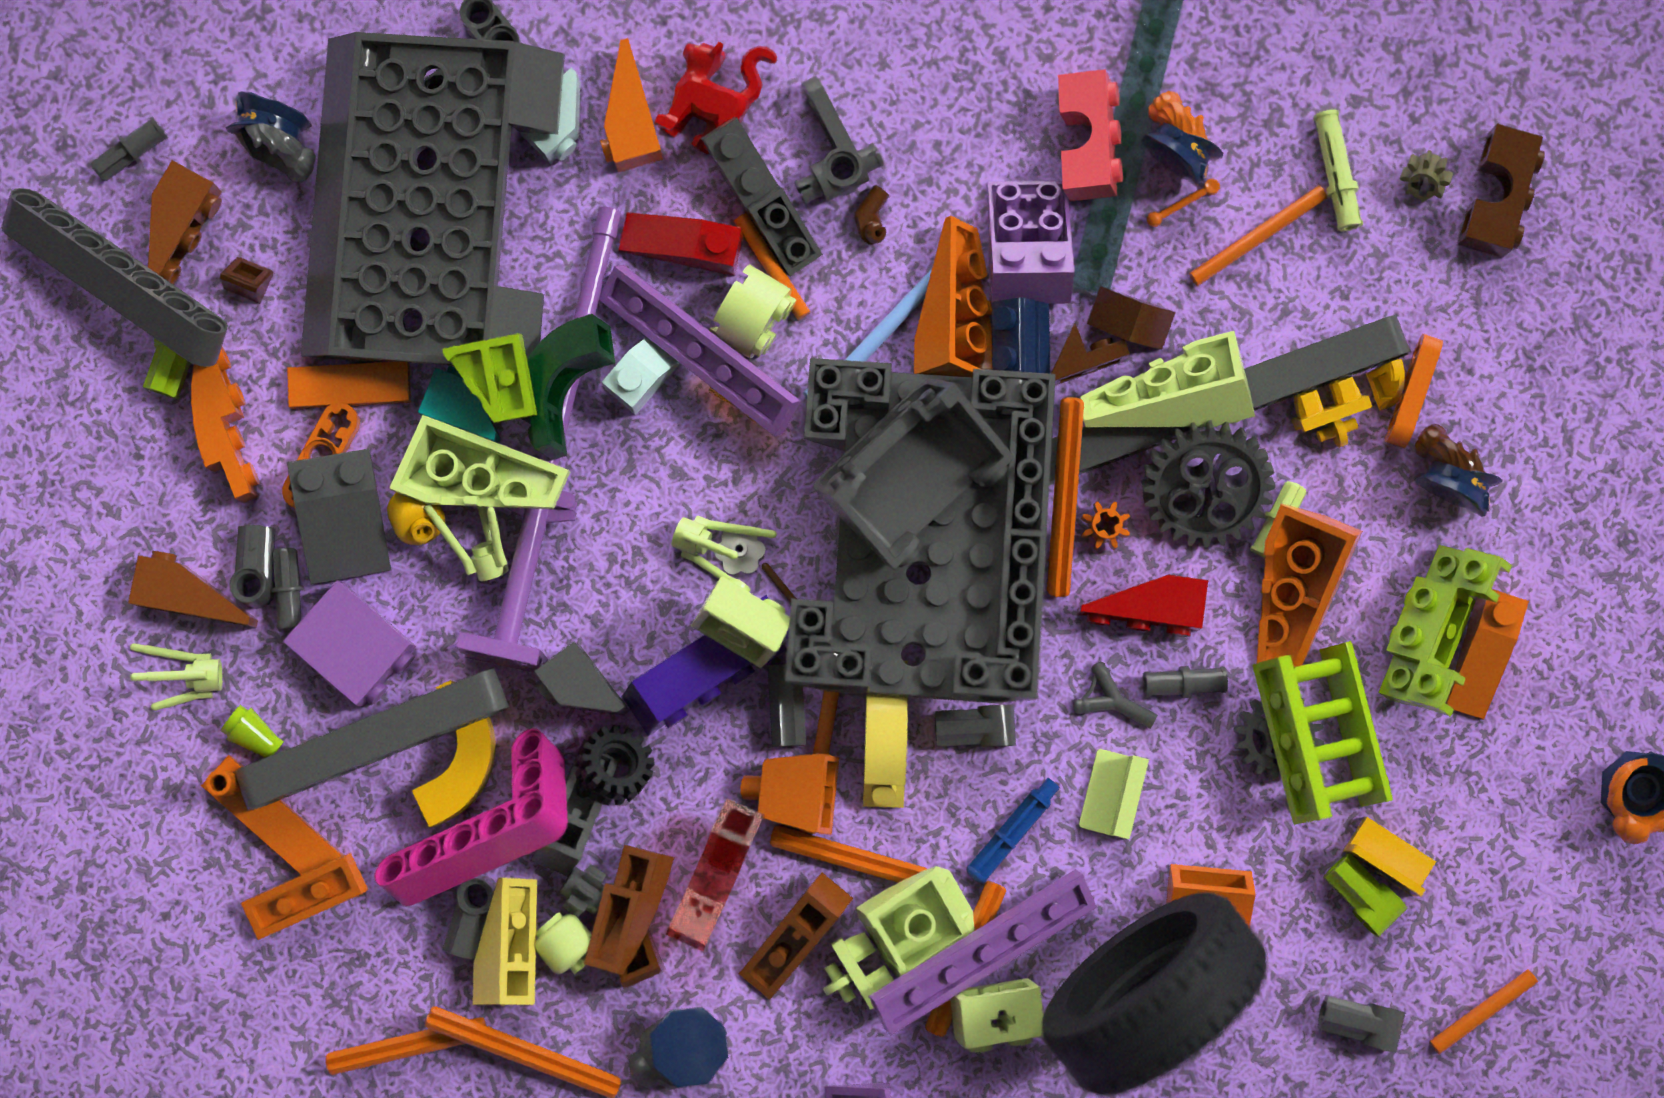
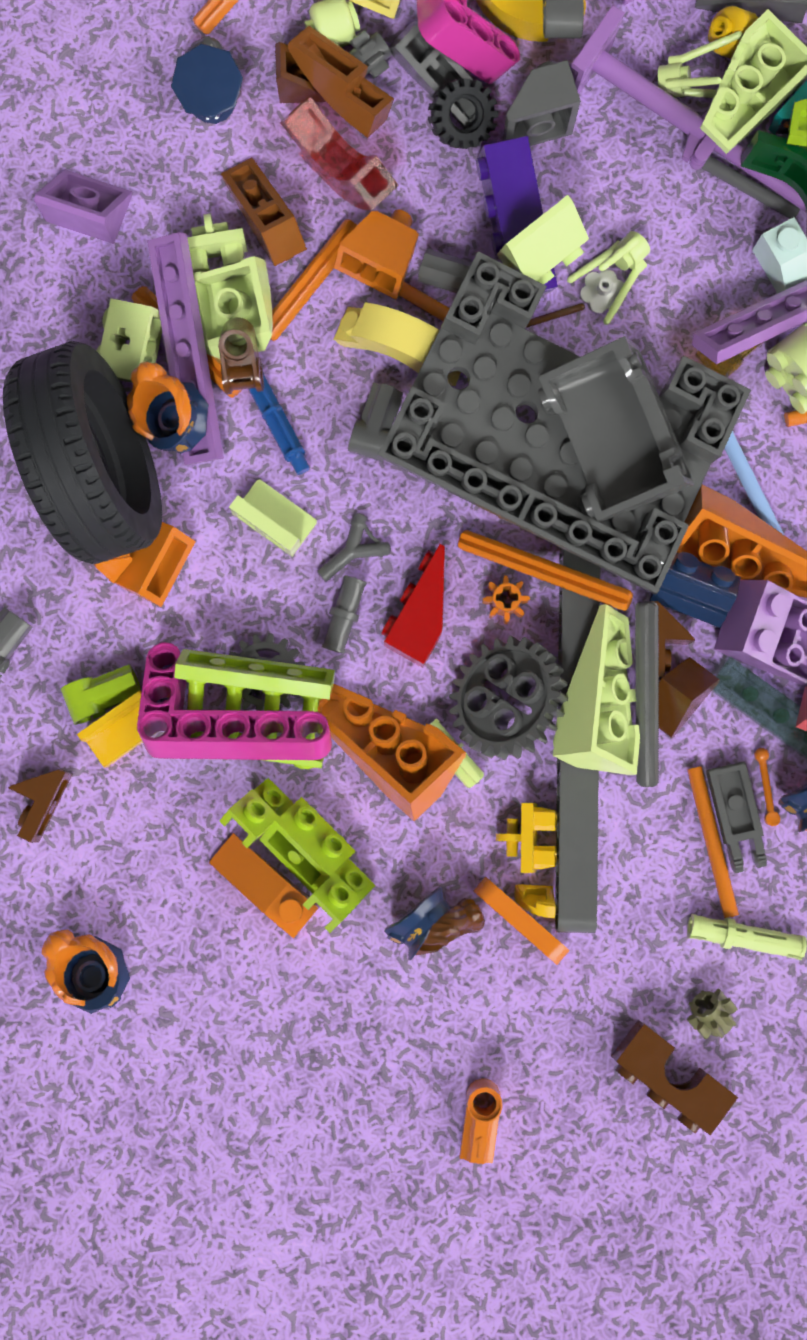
camera: 110 degrees right, 0 degrees up
(573, 432) = (750, 187): none -> dark grey bar
(971, 889) = (240, 364): none -> reddish brown piece
(1058, 942) = (165, 409): none -> piece
(1147, 350) = (647, 691): none -> dark grey axle
(1221, 223) = (737, 813): none -> dark grey hinge
(1357, 756) = (219, 724): none -> dark pink beam
(1487, 912) = (46, 792): none -> reddish brown slope
(1619, 356) = (480, 1124): none -> orange piece

